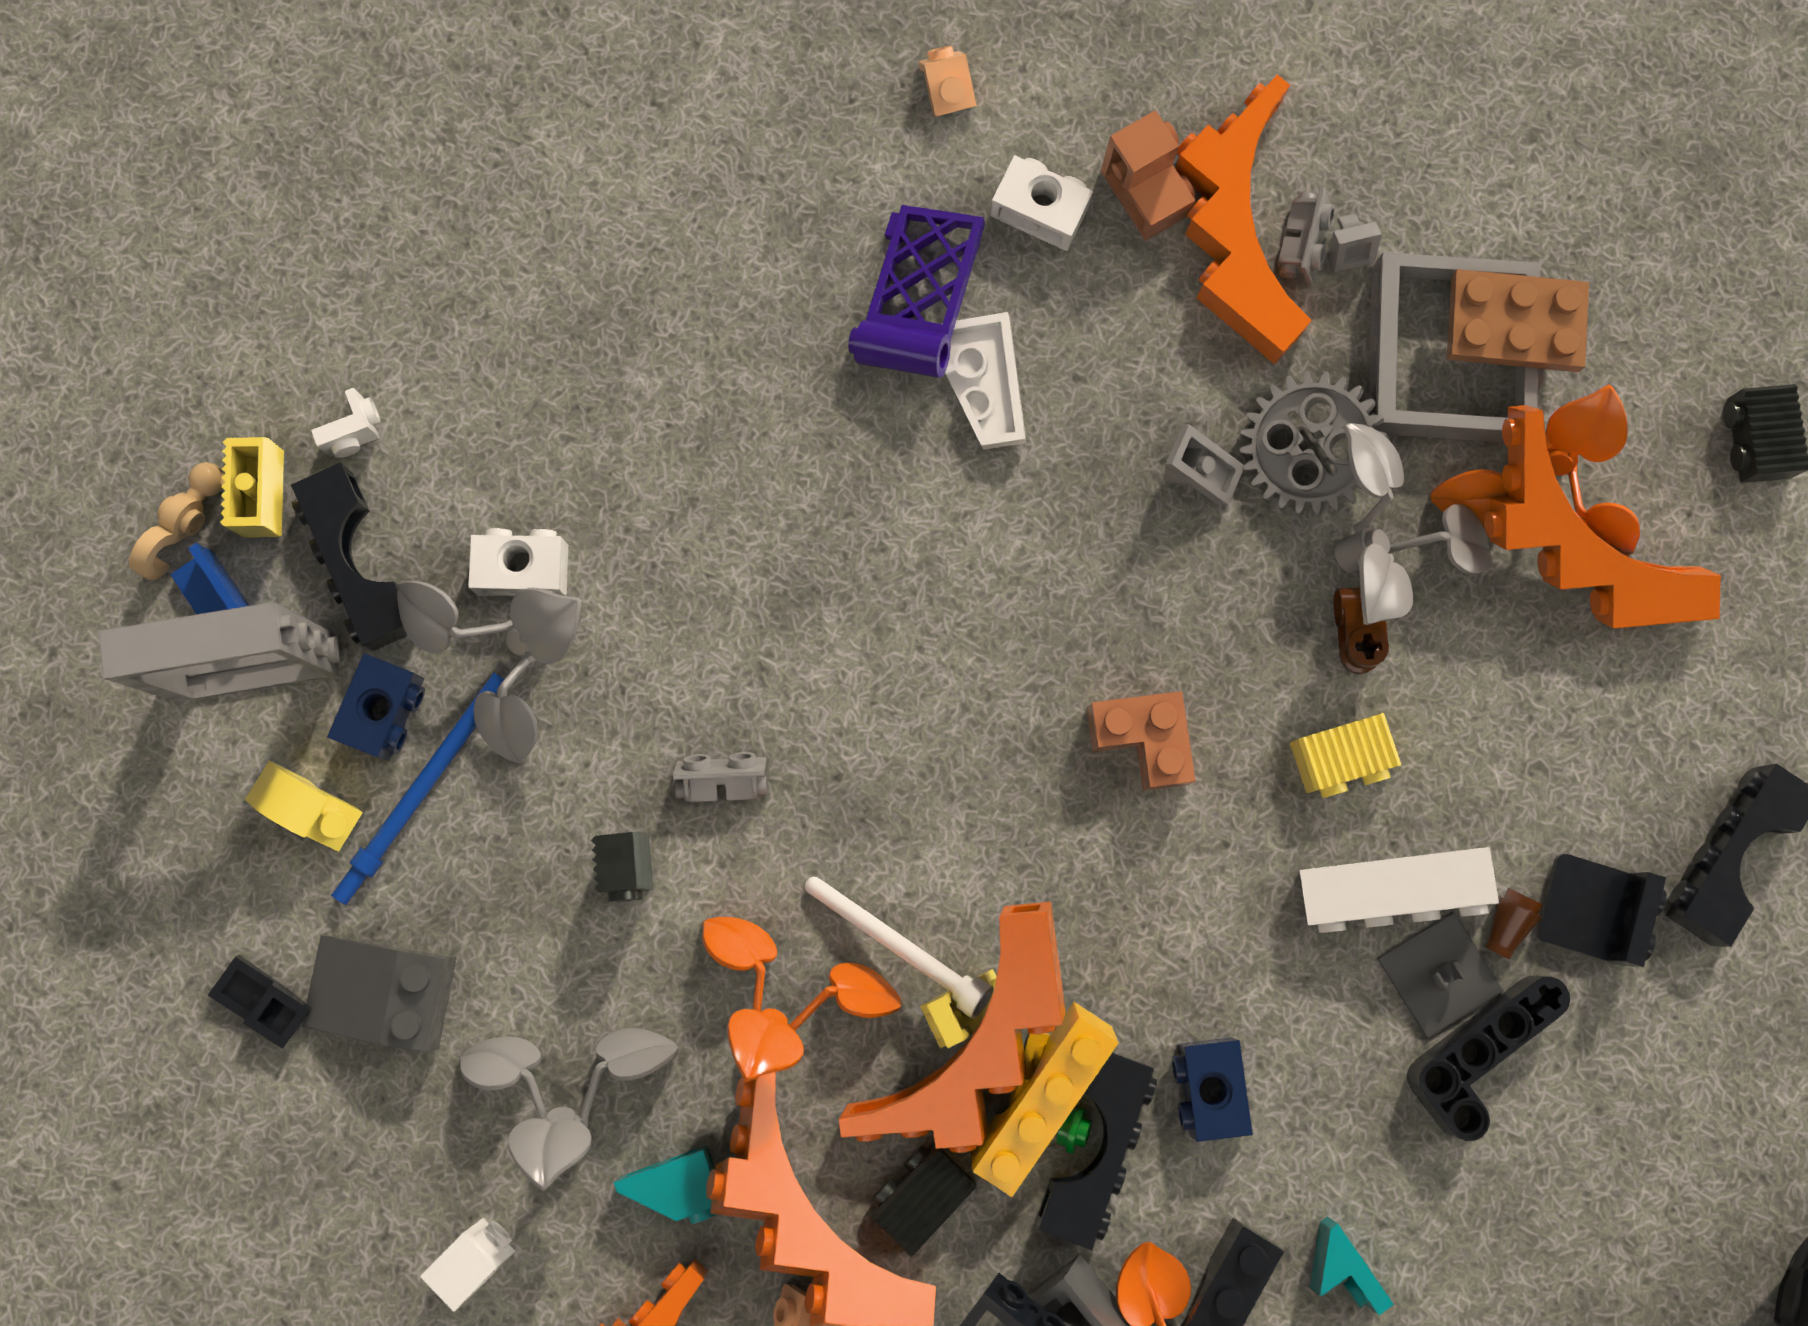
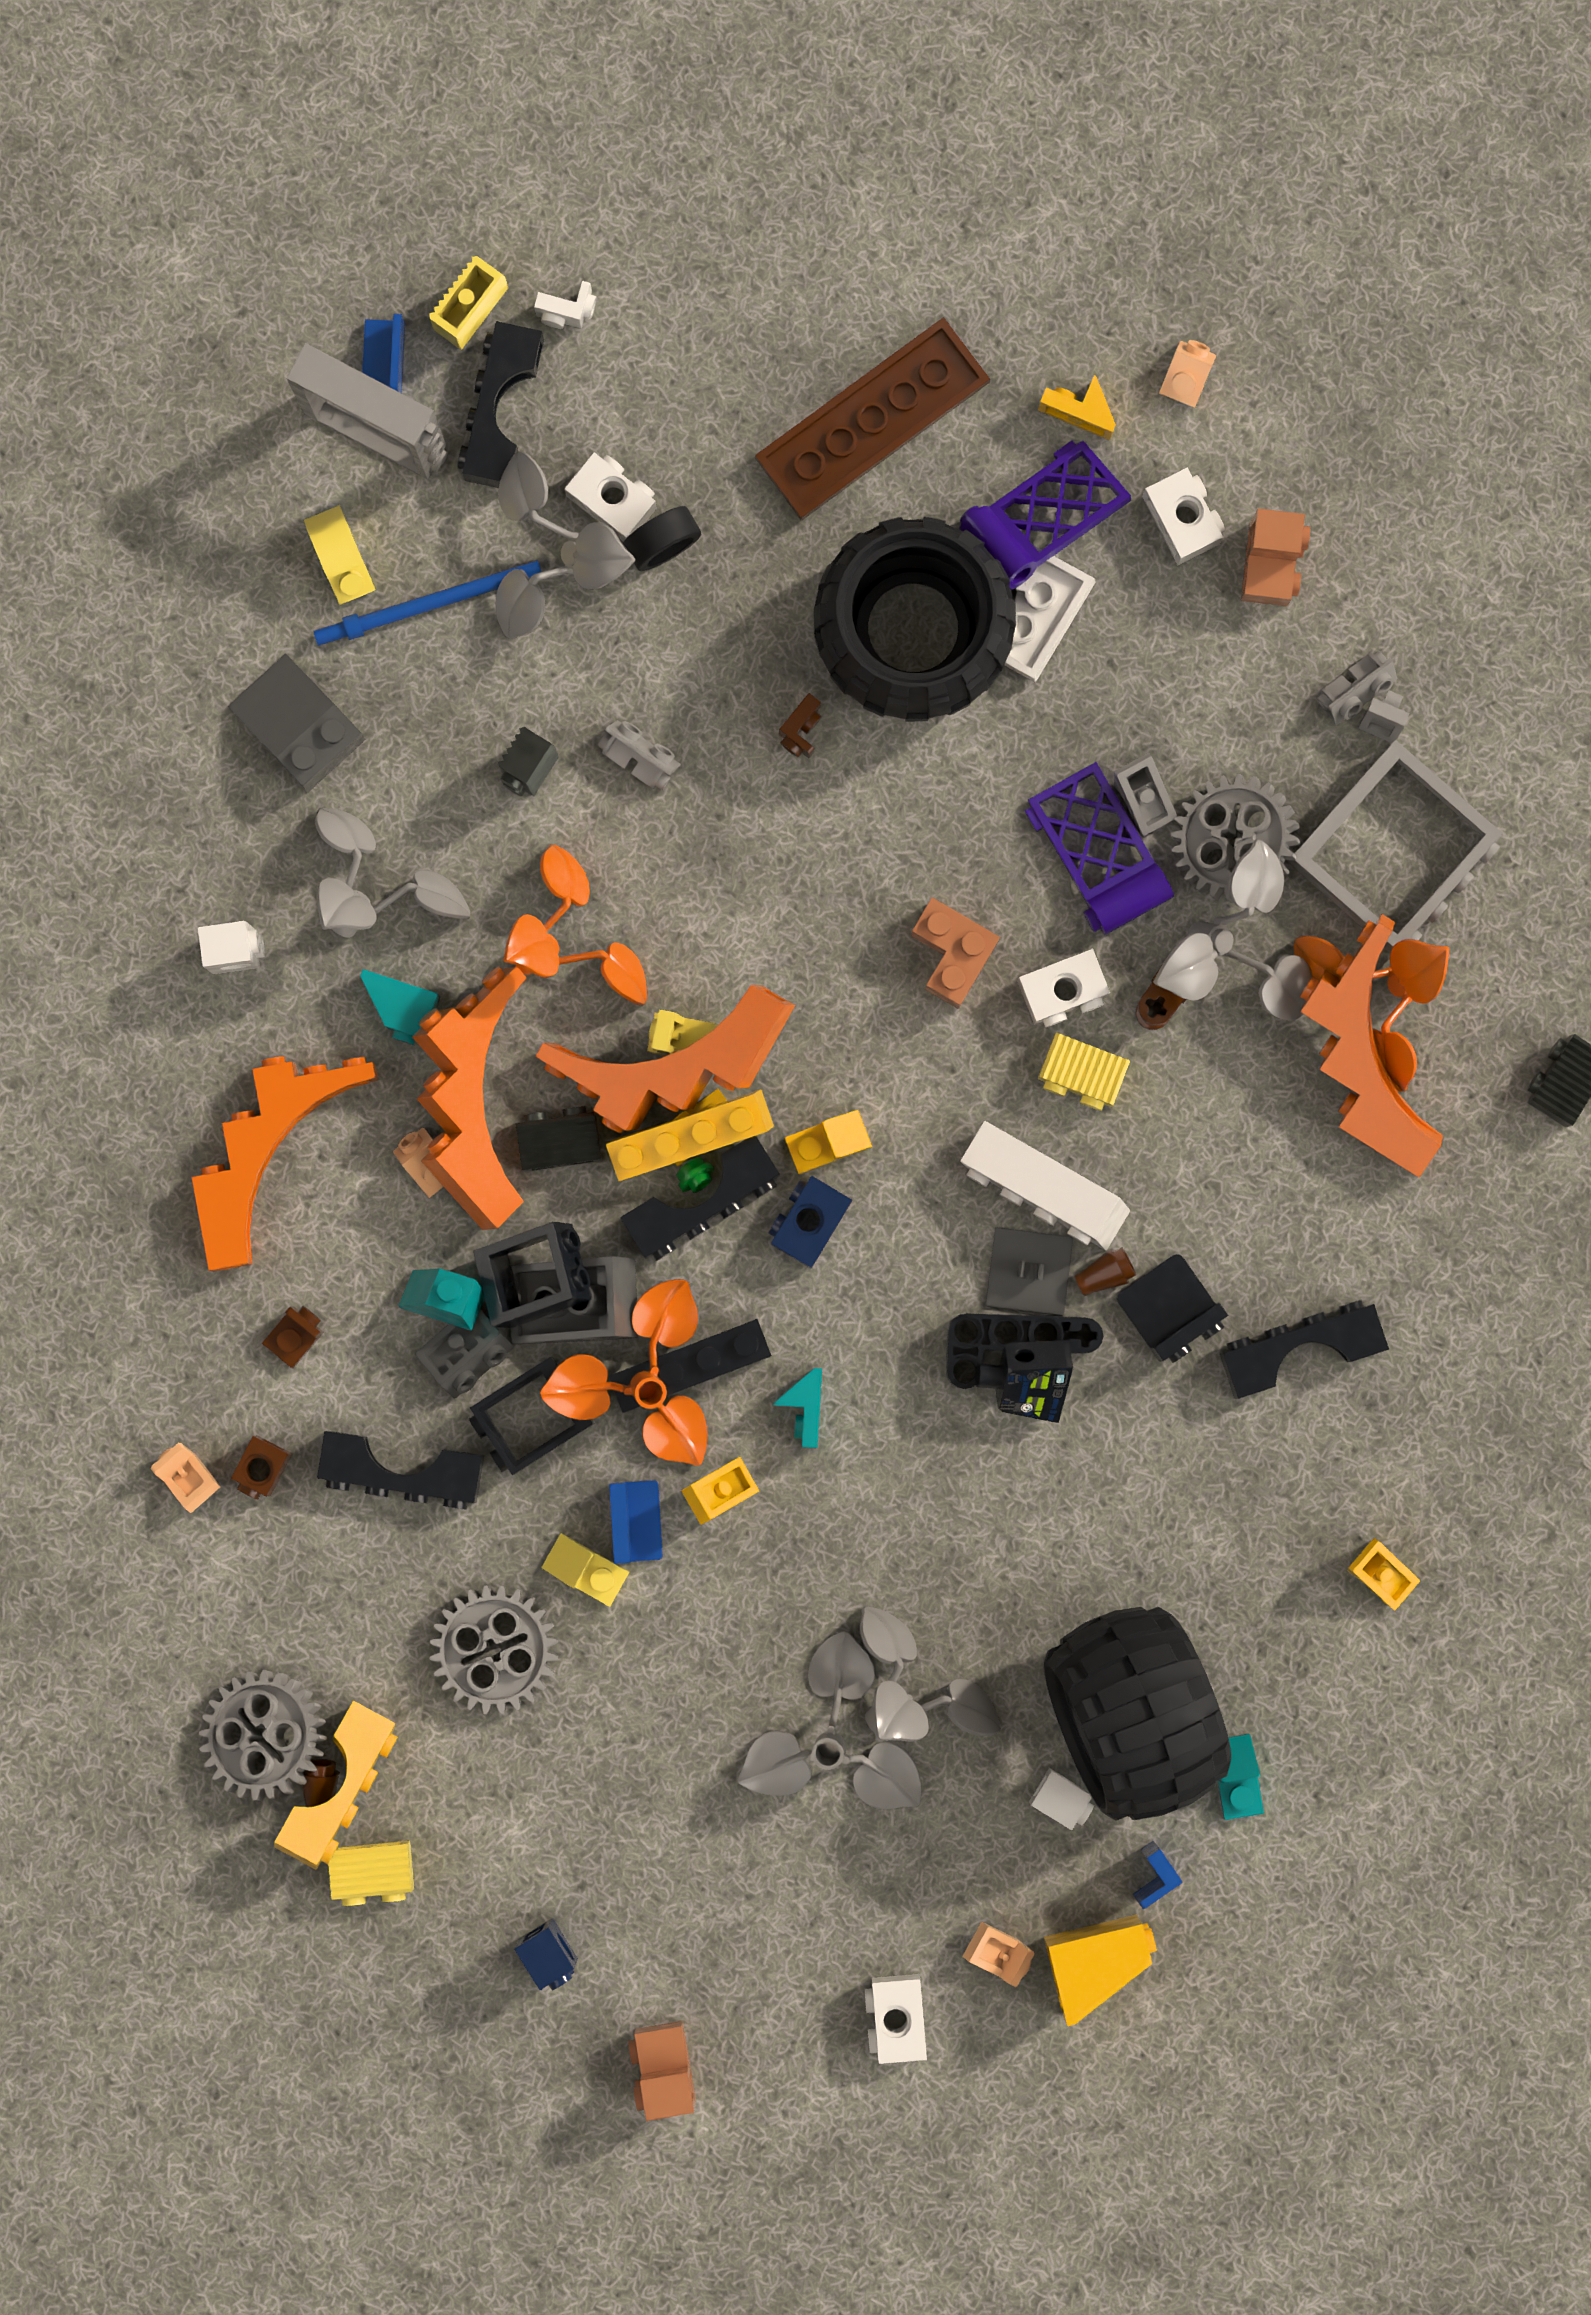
camera: 40 degrees right, 5 degrees up
(178, 519) = (400, 283): tan piece -> none
(260, 1000) = (212, 667): black slope -> none
(371, 682) = (449, 504): dark blue brick -> none
(593, 564) = (662, 538): none -> black tyre
(701, 323) = (872, 418): none -> reddish brown plate
(847, 631) = (802, 719): none -> reddish brown bracket
(891, 177) = (1090, 415): none -> yellow slope
(893, 393) = (927, 555): none -> black tyre
(968, 993) = (692, 1023): white piece -> none
(1168, 1000) = (828, 1141): none -> yellow slope
(1238, 281) = (1333, 590): orange arch -> none
(1256, 566) = (1123, 895): none -> dark purple piece
(1289, 674) = (1081, 971): none -> white brick
(1518, 320) = (1448, 861): medium nougat plate -> none
(1536, 1079) = (1030, 1378): none -> torso

